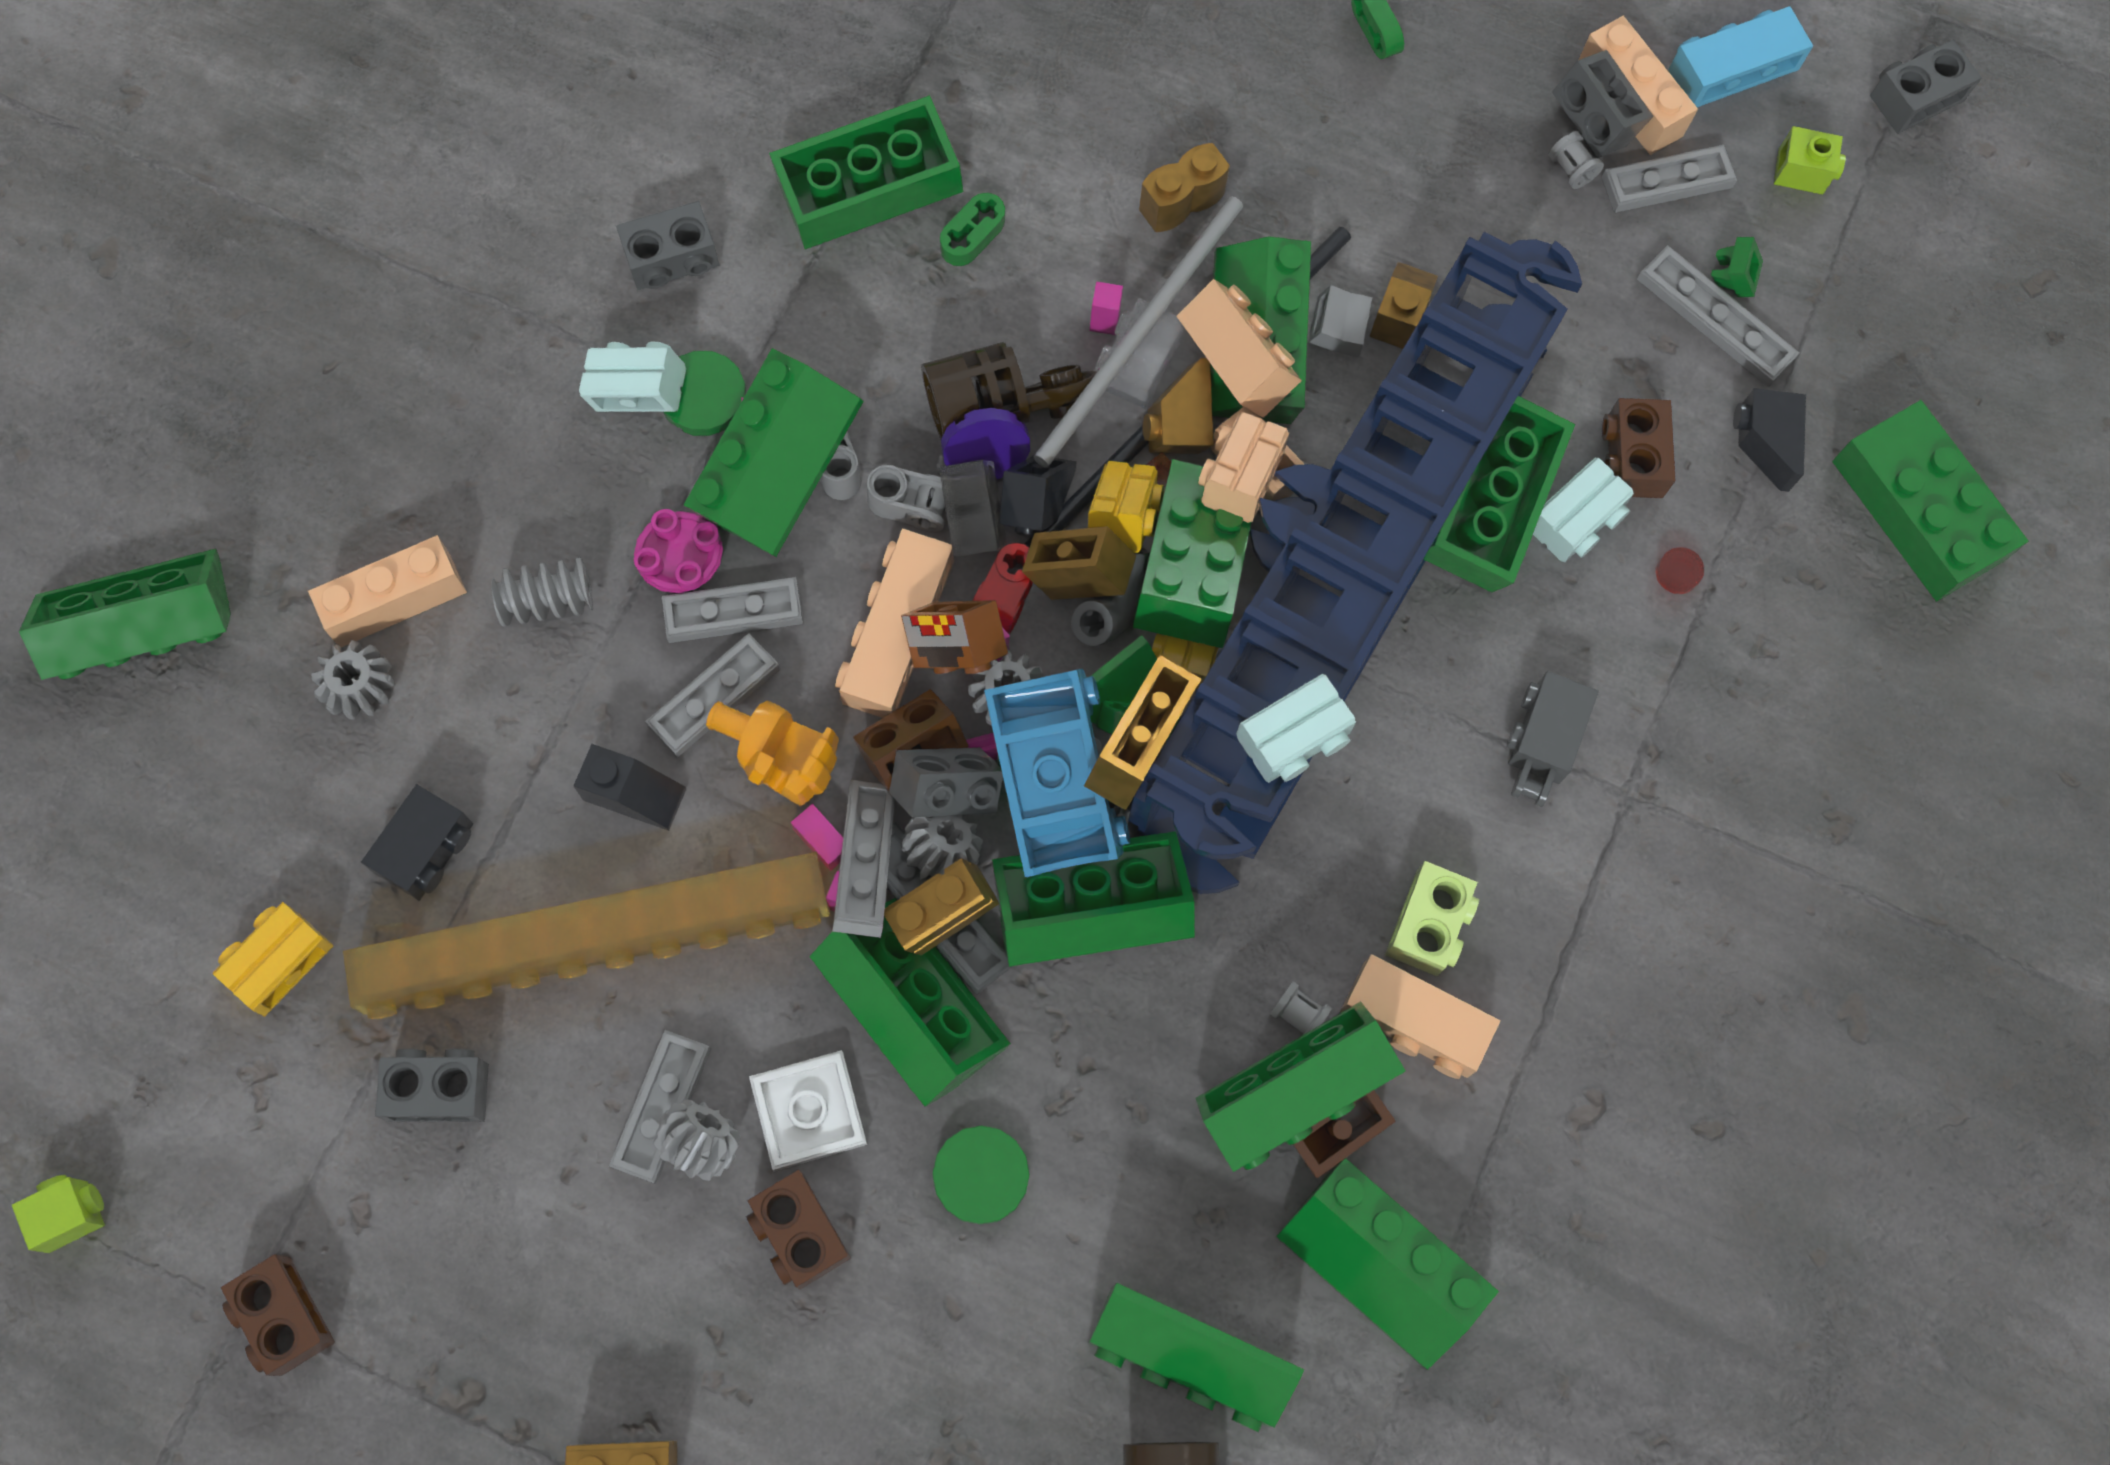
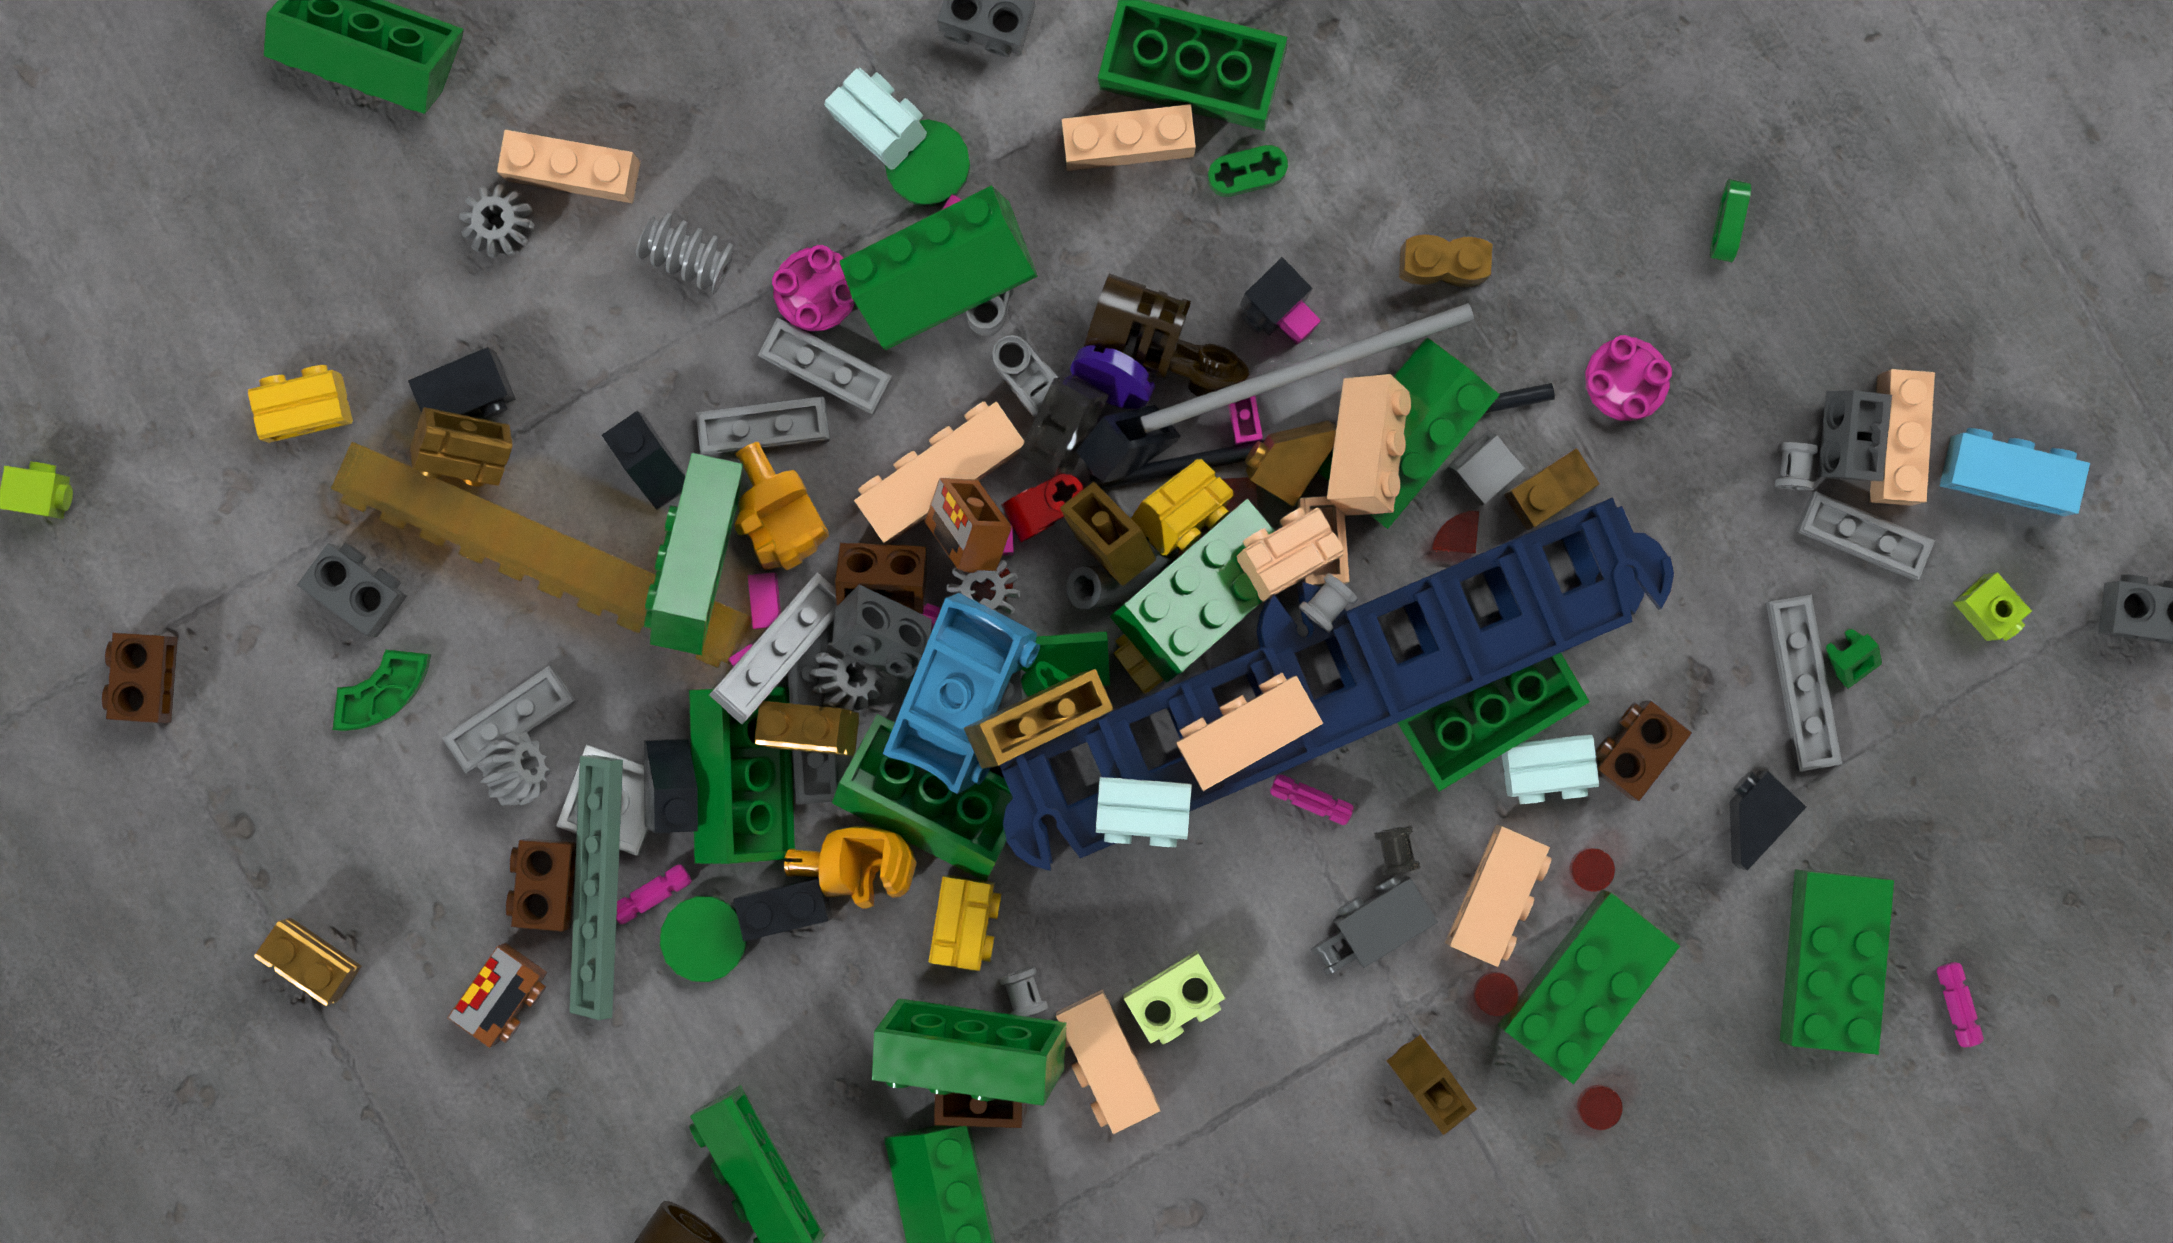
camera: 40 degrees right, 15 degrees up
(450, 886) = (460, 447): none -> pearl gold brick
(525, 1166) = (383, 693): none -> green tile
(732, 824) = (693, 555): none -> brick
(829, 1366) = (498, 995): none -> brick
(850, 1195) = (596, 886): none -> sand green plate
(853, 1054) = (670, 786): none -> black slope
(856, 261) = (1128, 137): none -> light nougat brick
(903, 1169) = (652, 893): none -> dark pink axle
(1034, 1089) = (782, 909): none -> black brick
(1064, 998) = (851, 861): none -> light orange piece
(1070, 295) = (1274, 297): none -> black brick
(1118, 413) = (1245, 421): none -> dark pink piece
(1202, 987) = (963, 921): none -> yellow brick
(1312, 466) = (1328, 602): none -> light grey bush
(1332, 601) = (1247, 730): none -> light nougat brick
(1358, 387) = (1458, 534): none -> clear red tile
(1395, 183) = (1627, 378): none -> dark pink dish
(1412, 675) = (1311, 799): none -> dark pink axle
(1515, 663) = (1397, 850): none -> clear smoke bush
(1626, 641) = (1499, 896): none -> light nougat brick
(1688, 725) = (1495, 993): none -> clear red tile
(1701, 833) = (1431, 1084): none -> pearl gold slope
(1758, 660) = (1588, 985): none -> green brick
(1847, 756) = (1599, 1107): none -> clear red tile
(2047, 471) = (1960, 1004): none -> dark pink axle

